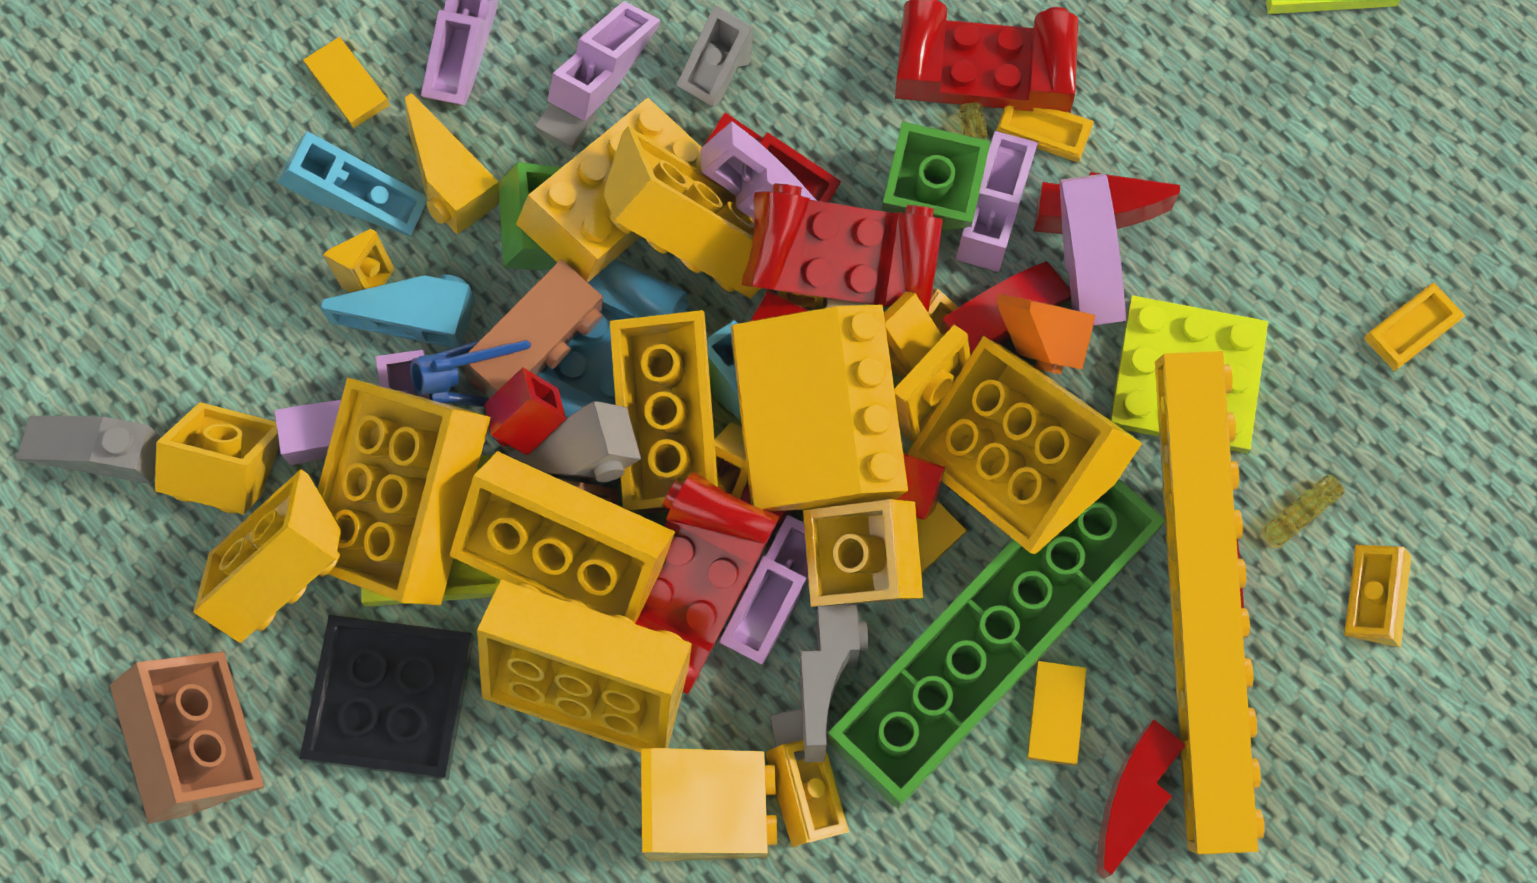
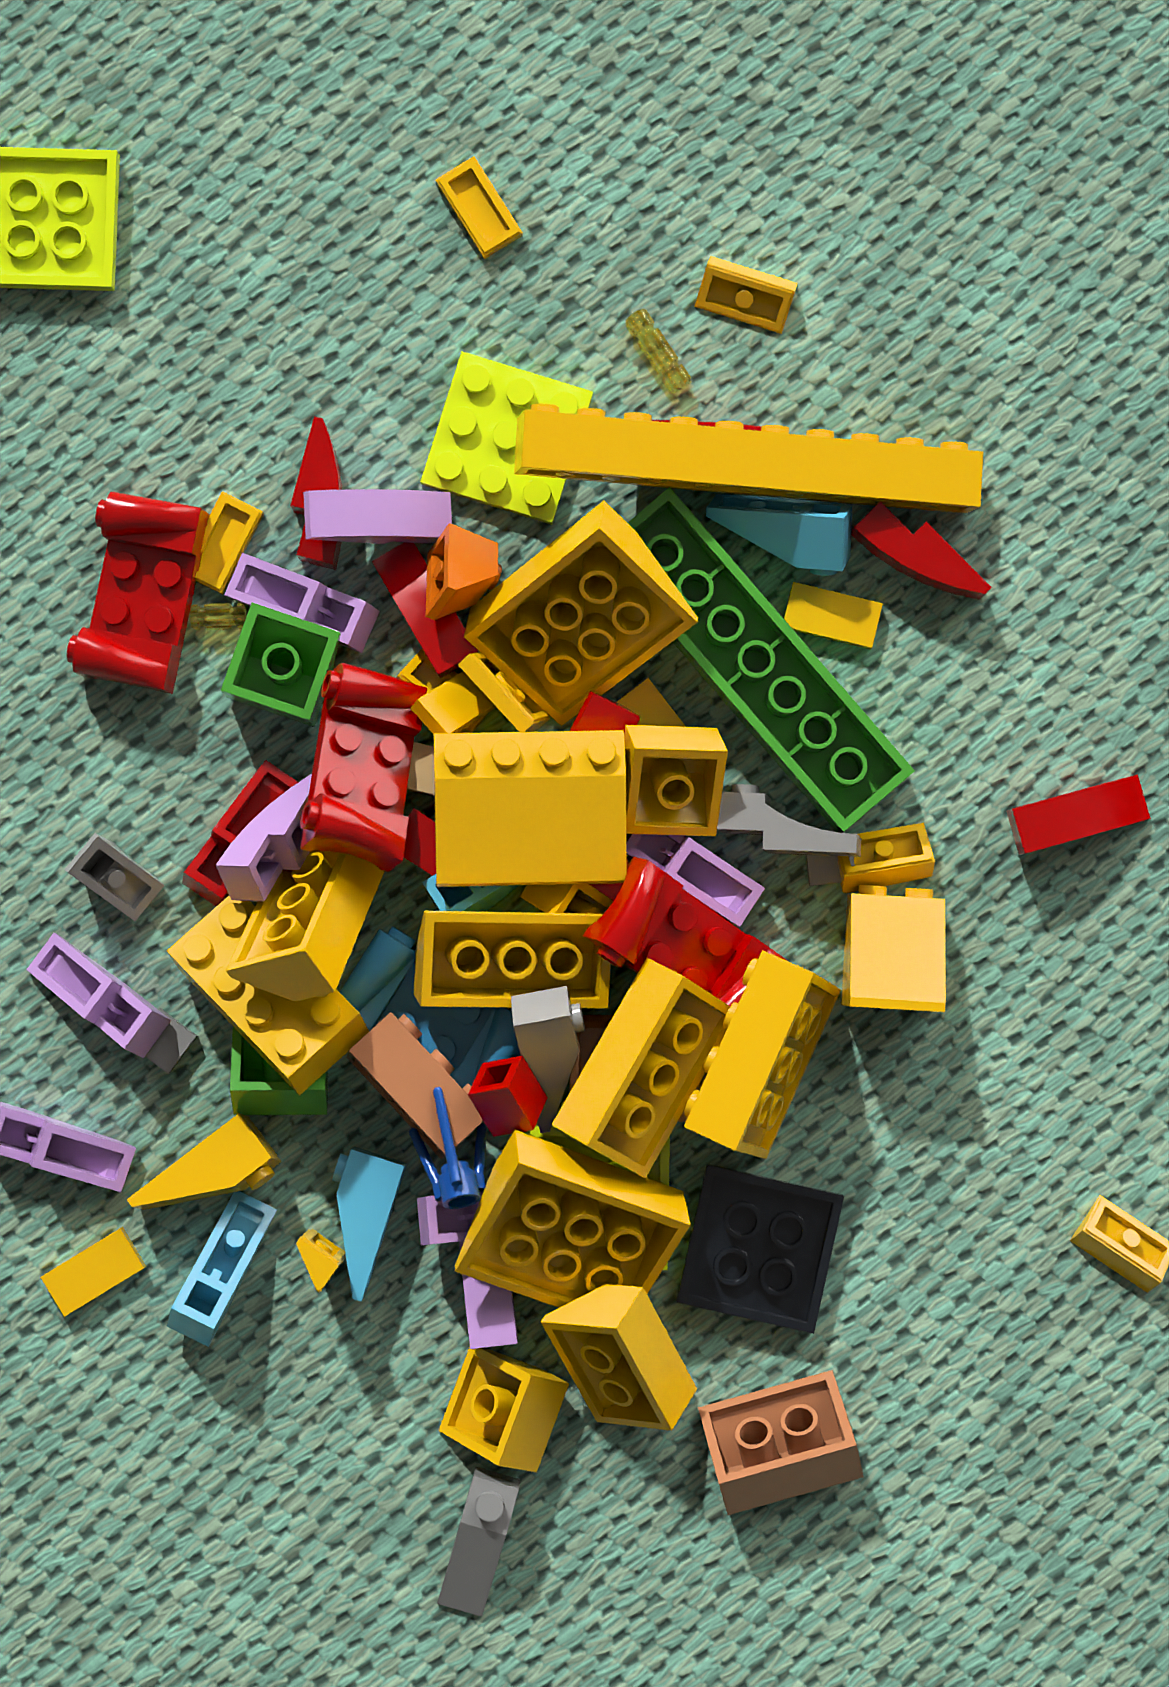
camera: 85 degrees left, 15 degrees up
(1140, 658) = (797, 531): none -> medium azure slope

